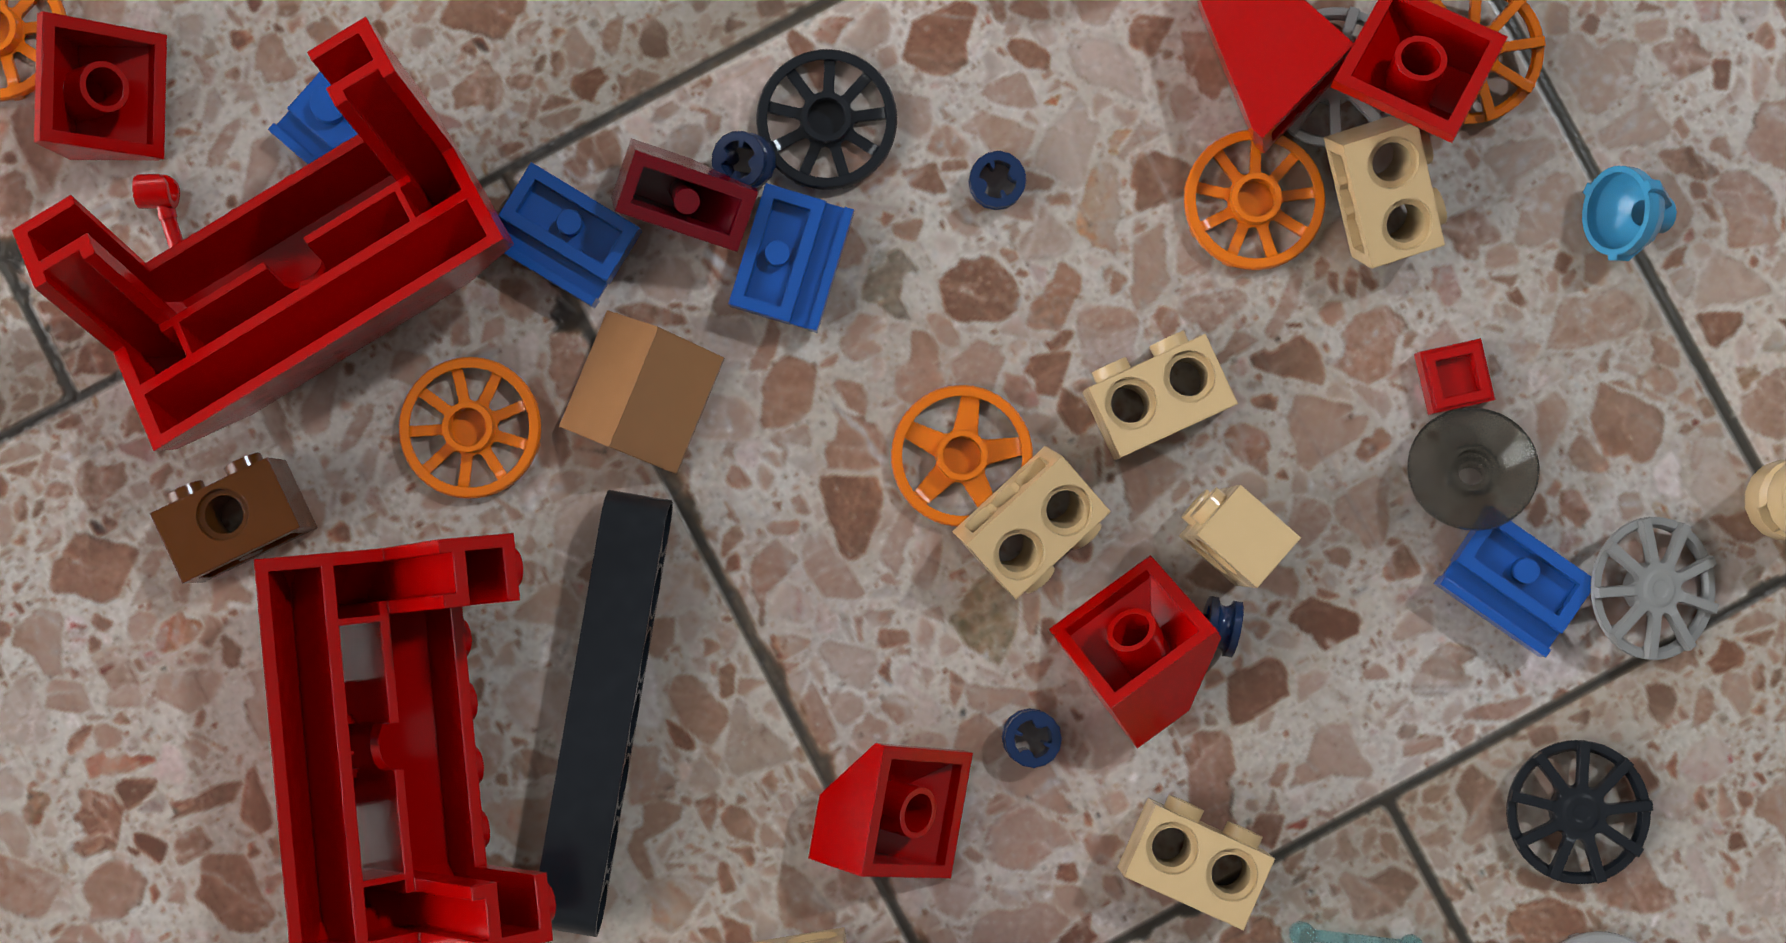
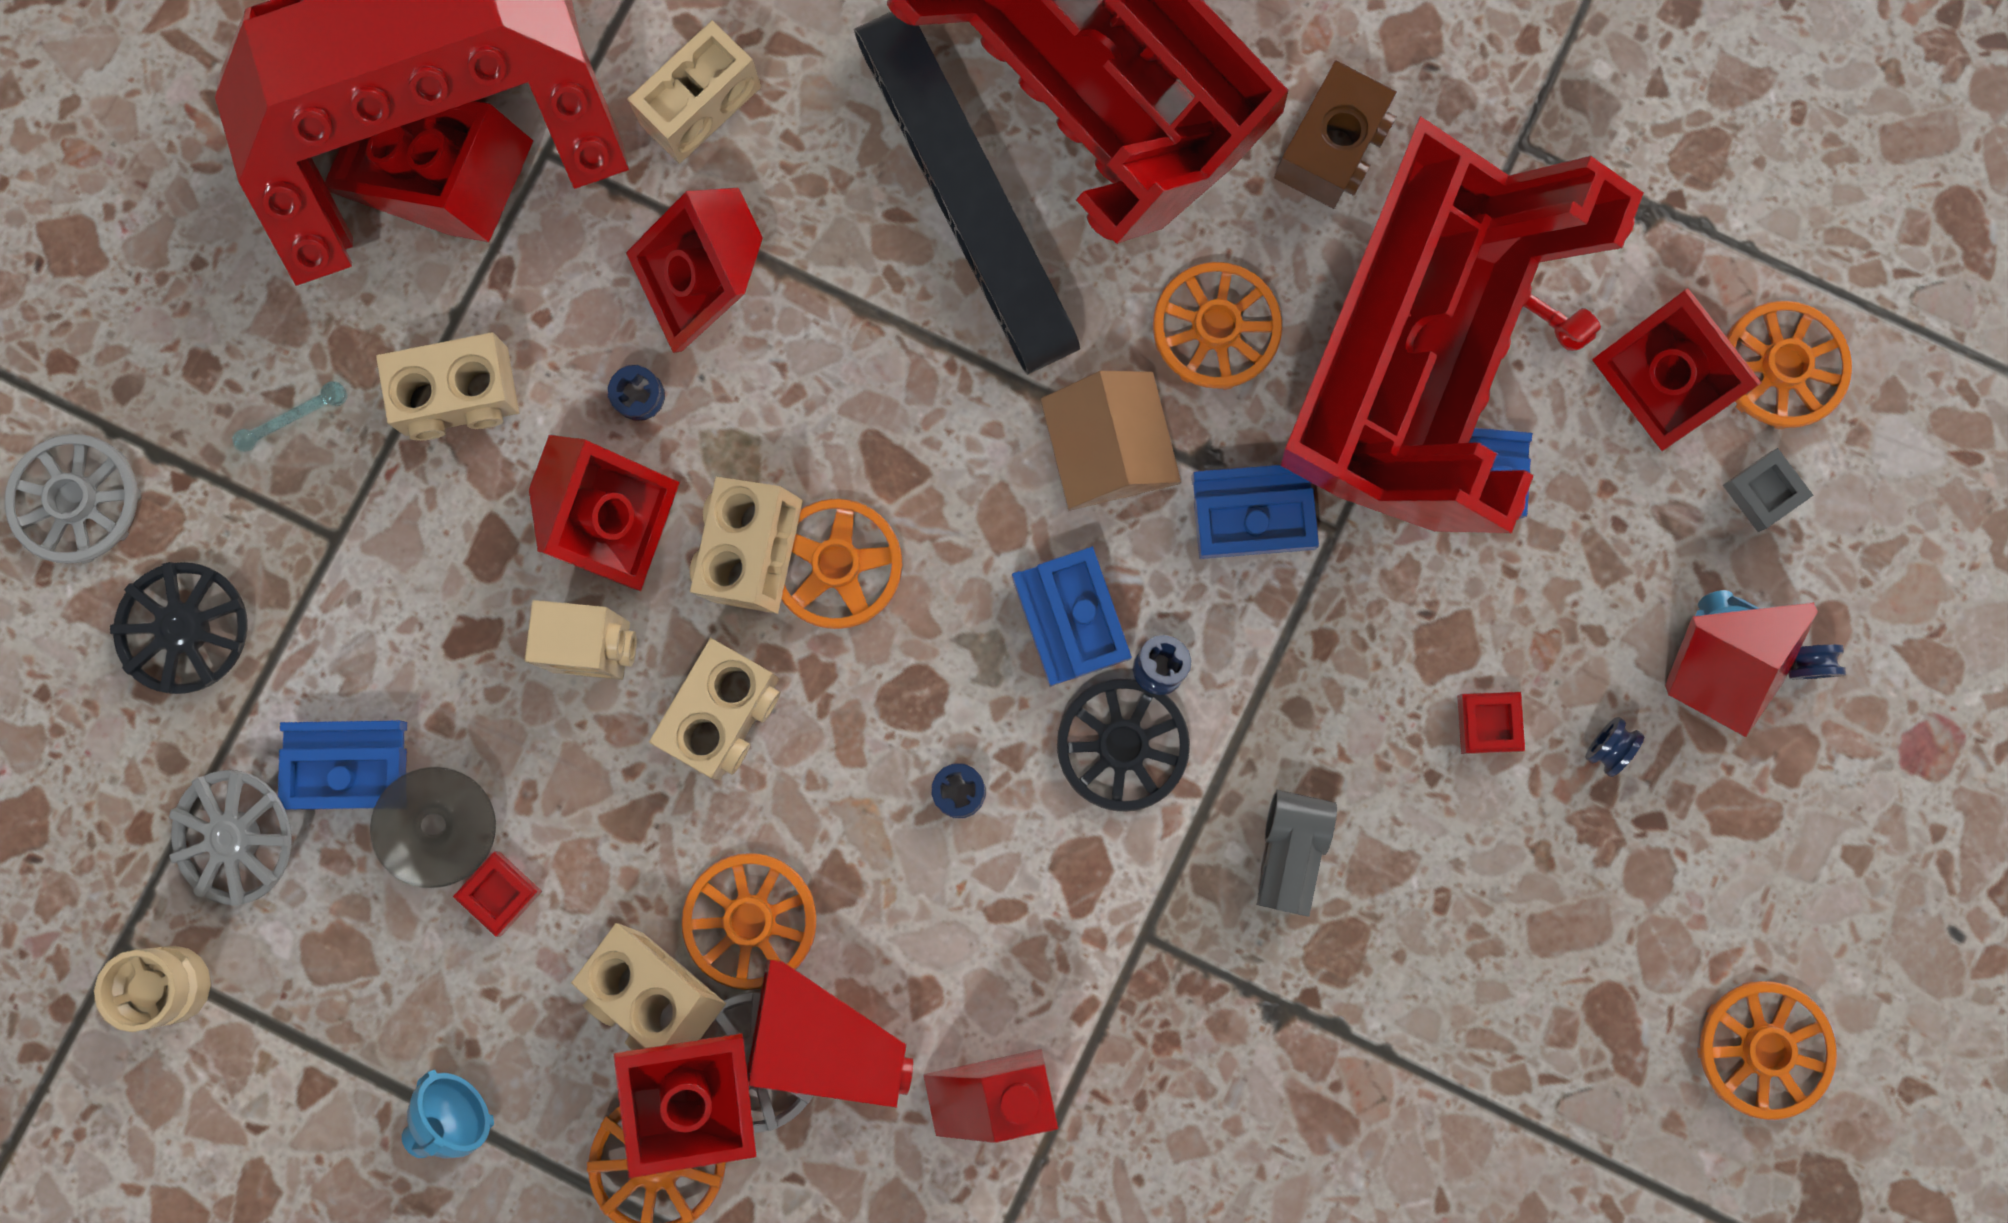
camera: 145 degrees right, 5 degrees down
(682, 195) = (1187, 599): dark red slope -> none
(1227, 621) = (547, 574): dark blue bush -> none

